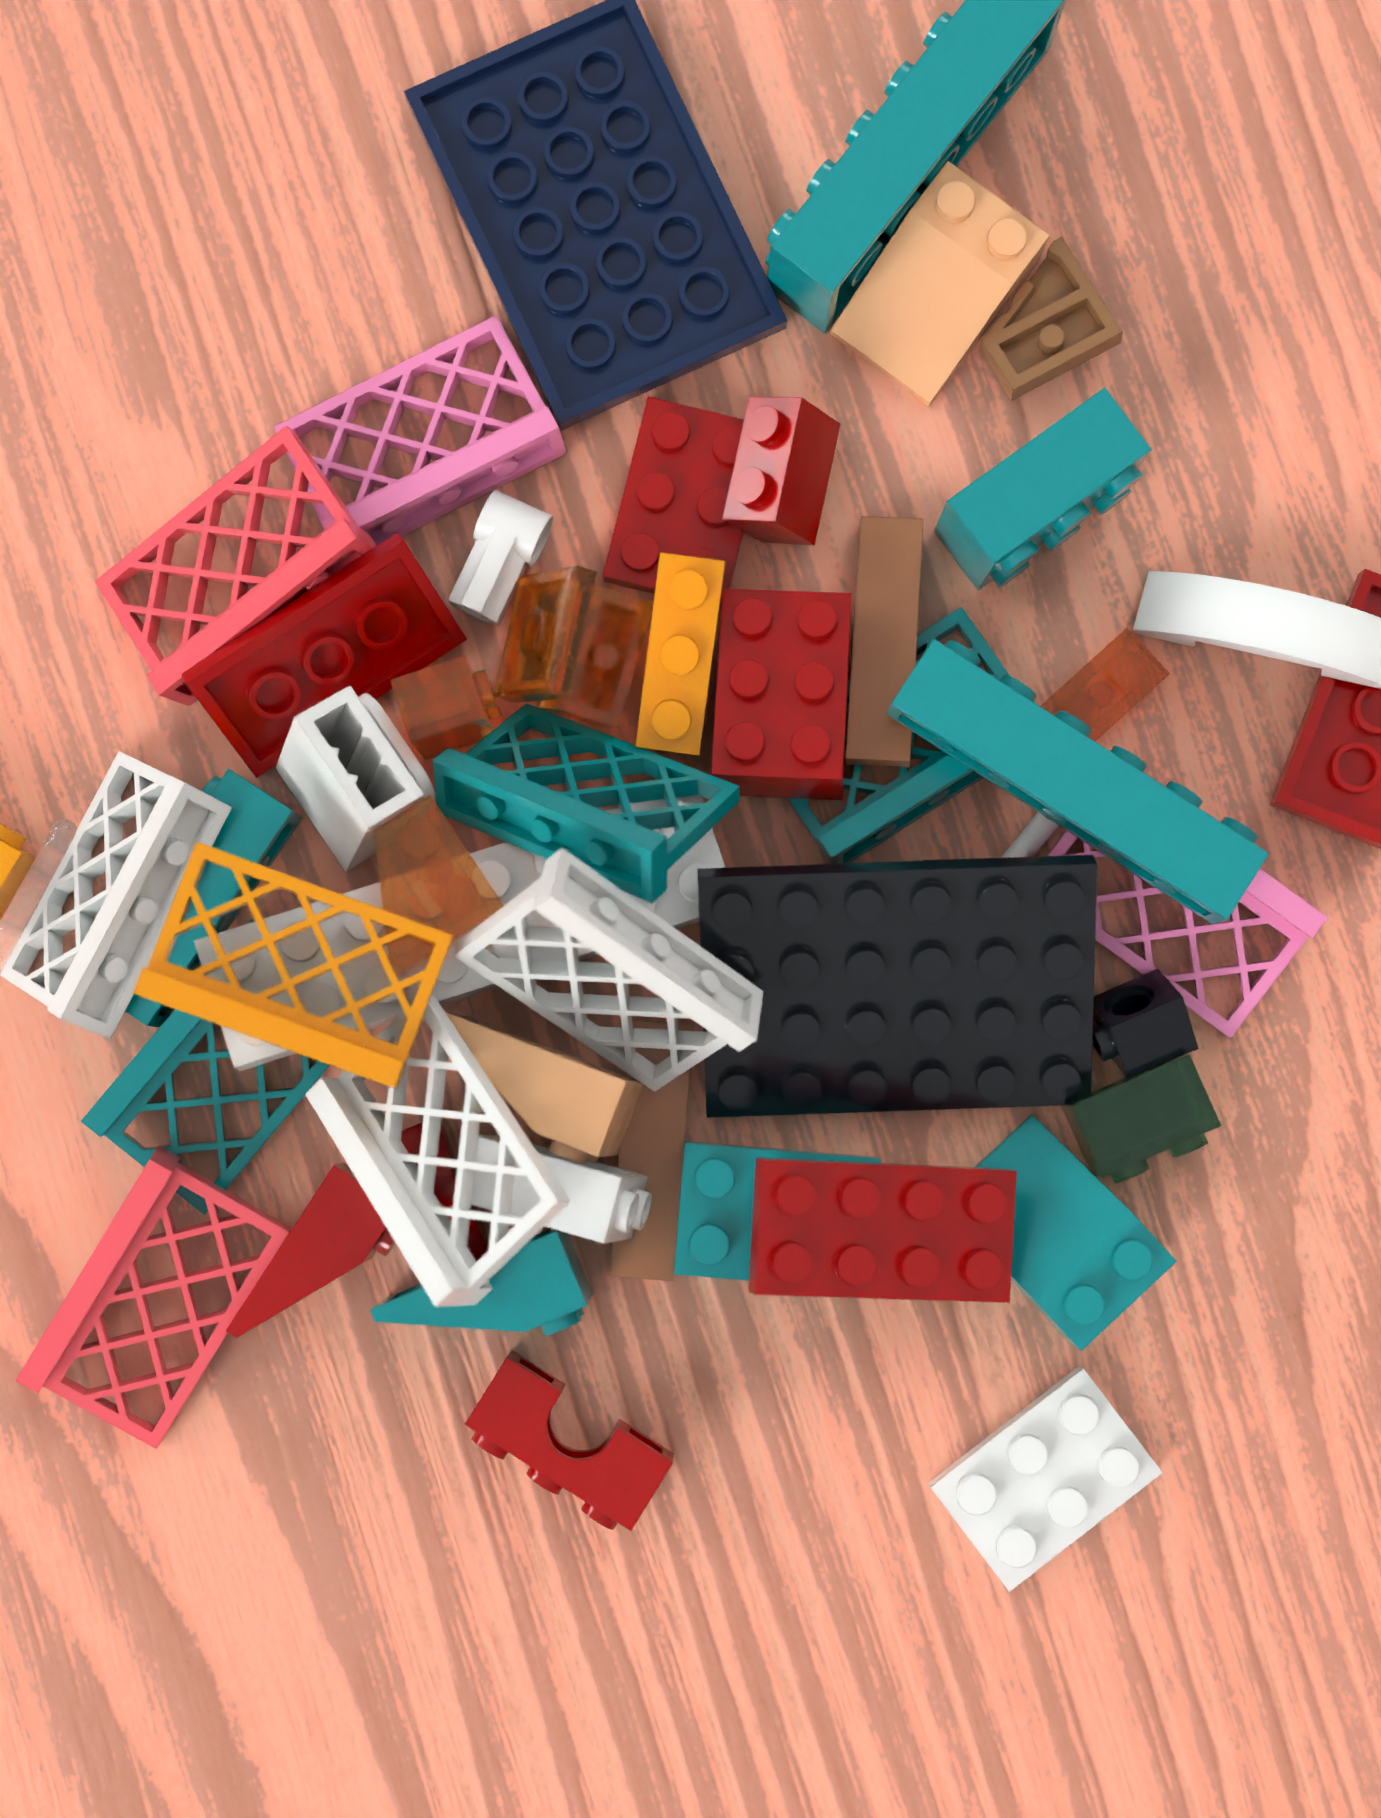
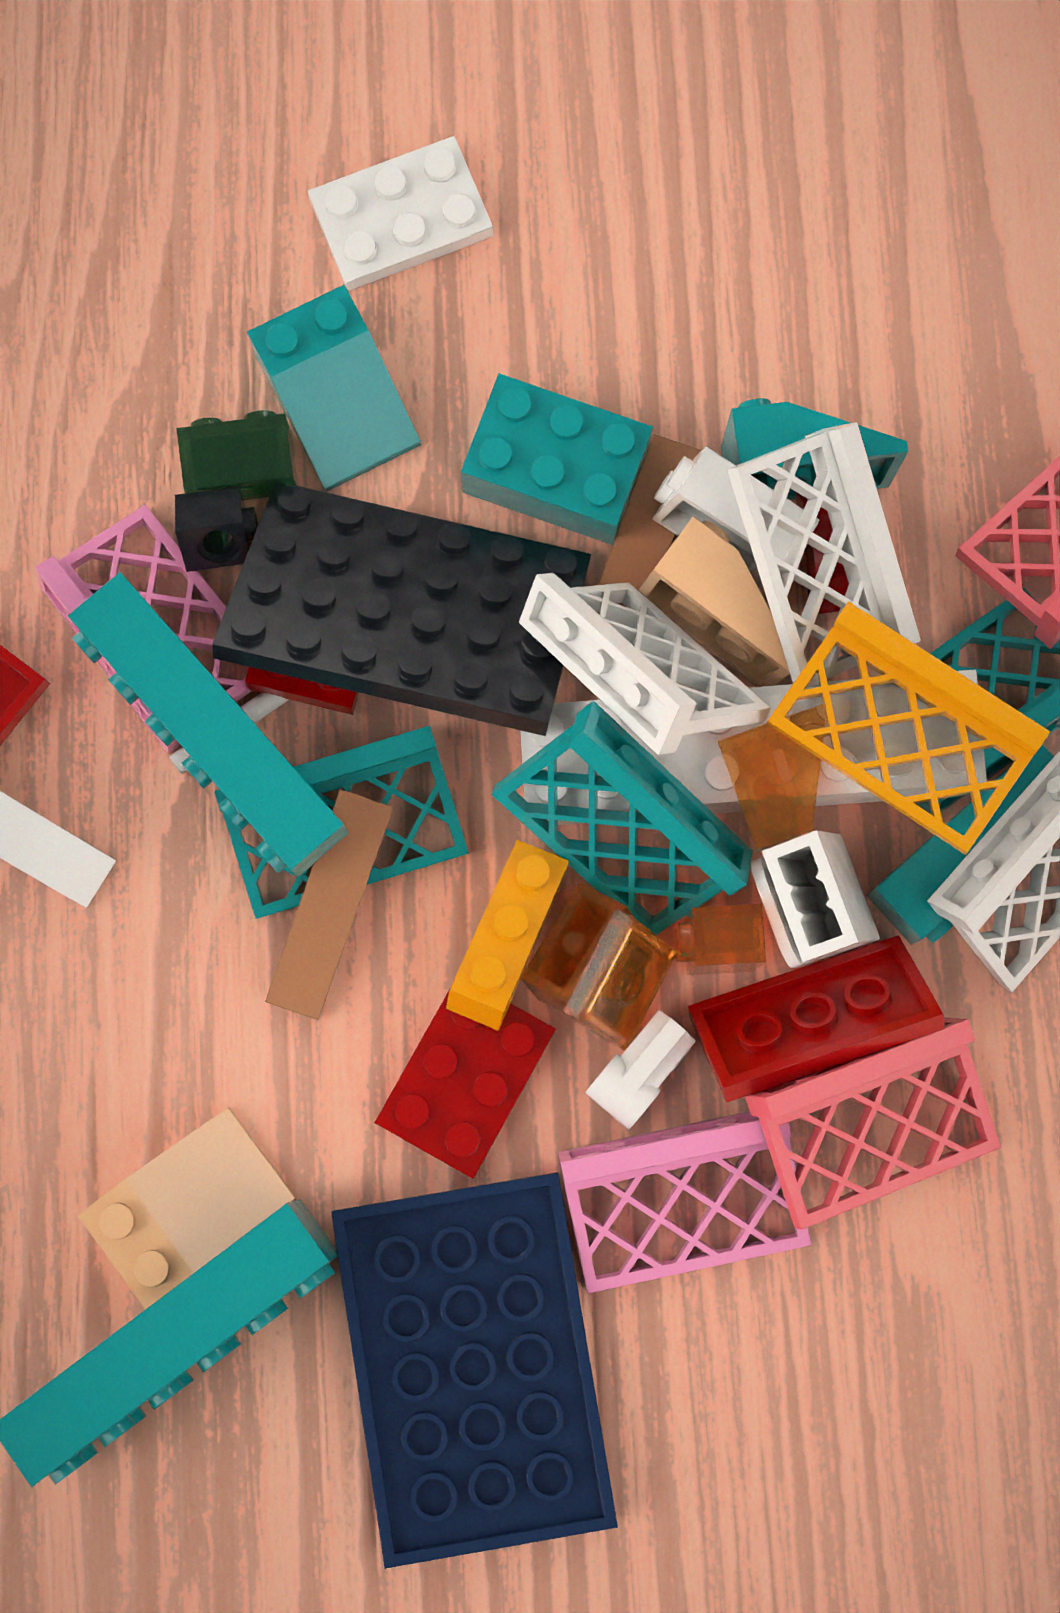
camera: 165 degrees left, 5 degrees down
(326, 1242) = (935, 527): red slope -> none
(611, 1478) = (743, 298): red arch -> none
(781, 470) = (375, 1073): red brick -> none
(782, 693) = (430, 876): red brick -> none
(882, 1231) = (476, 411): red plate -> none
(1043, 491) = (154, 987): teal brick -> none
(1050, 325) = (102, 1145): medium nougat wing -> none
(1109, 684) = (158, 815): clear orange plate -> none

